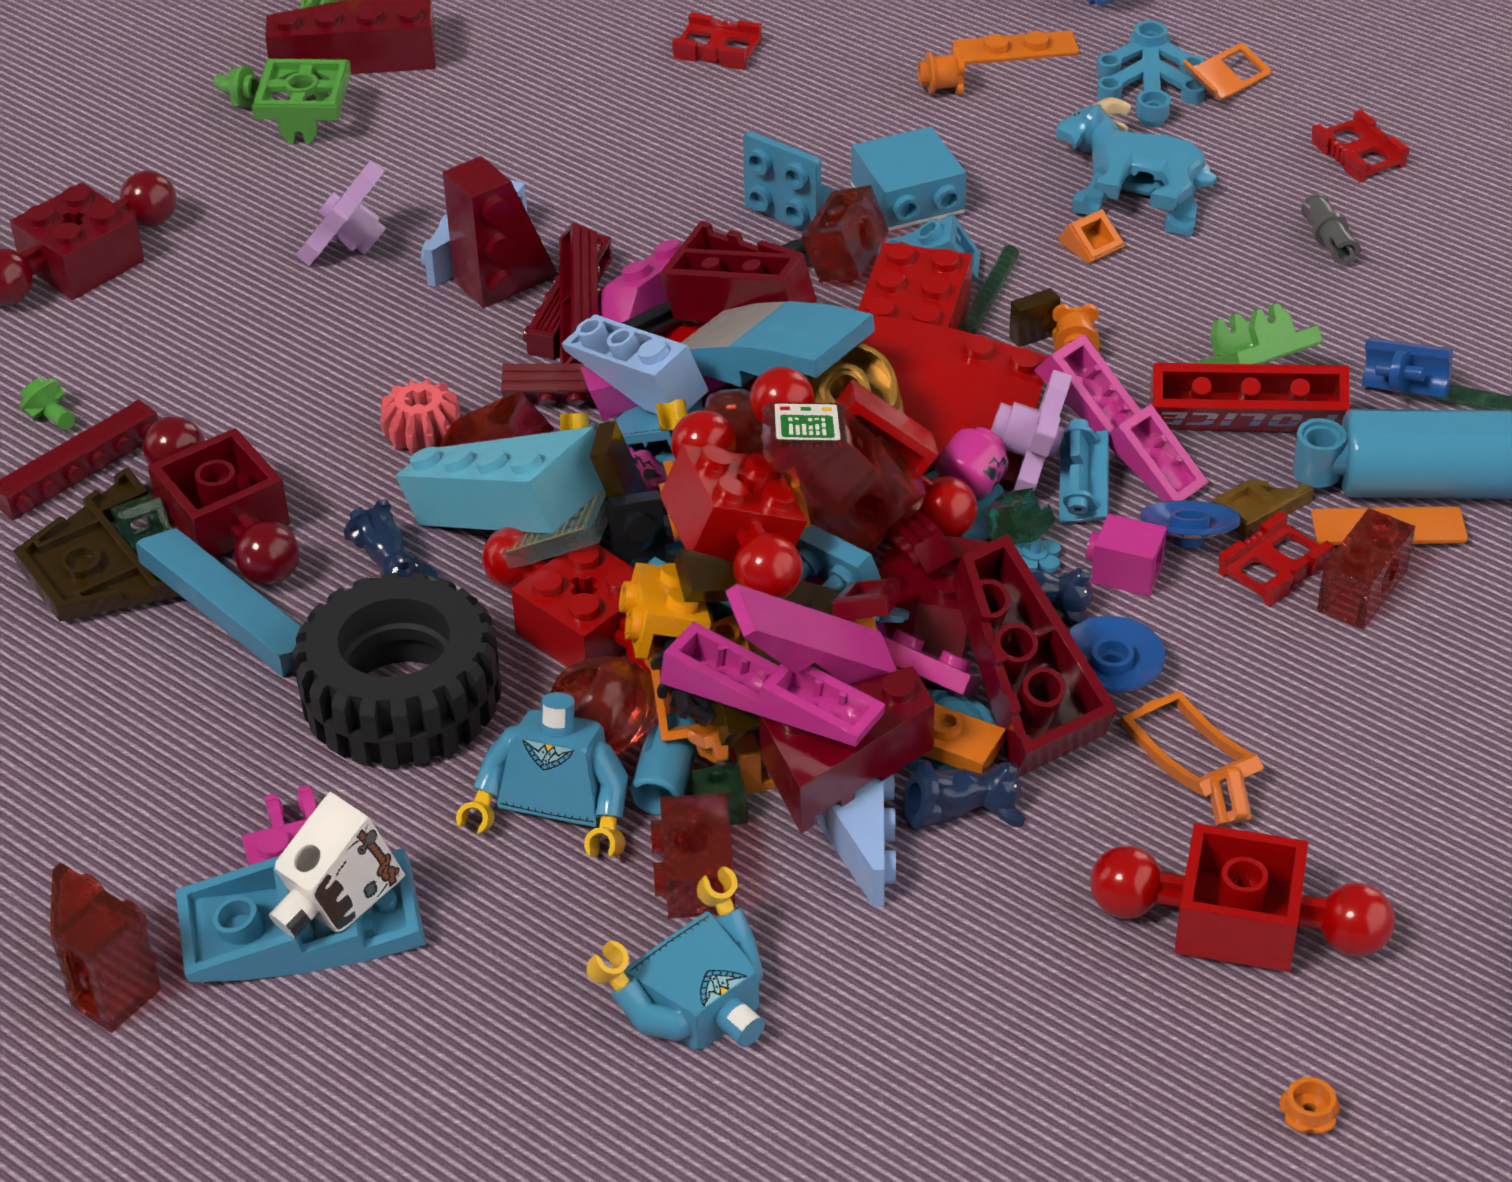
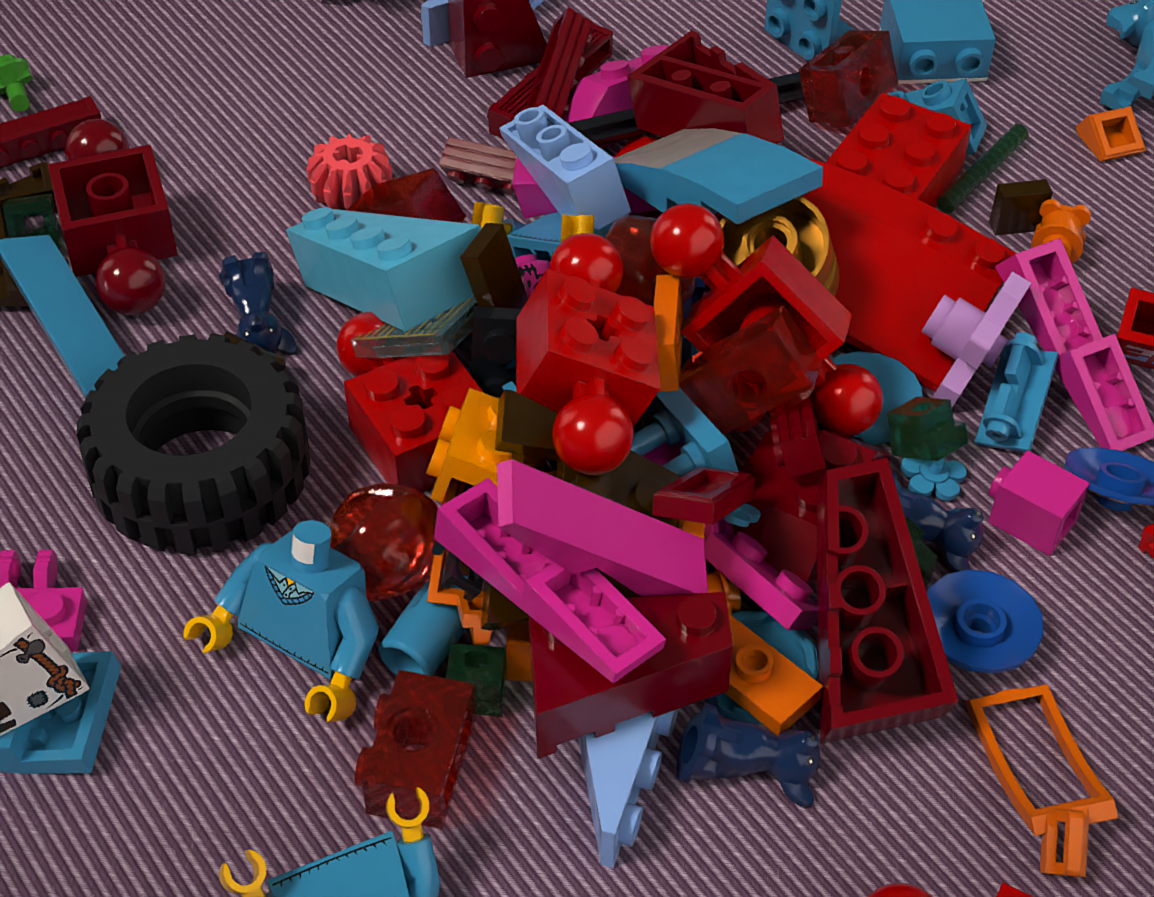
camera: 15 degrees right, 5 degrees up
(823, 450) = (704, 310): clear red slope -> none
(975, 458) = (896, 353): dark pink head -> none

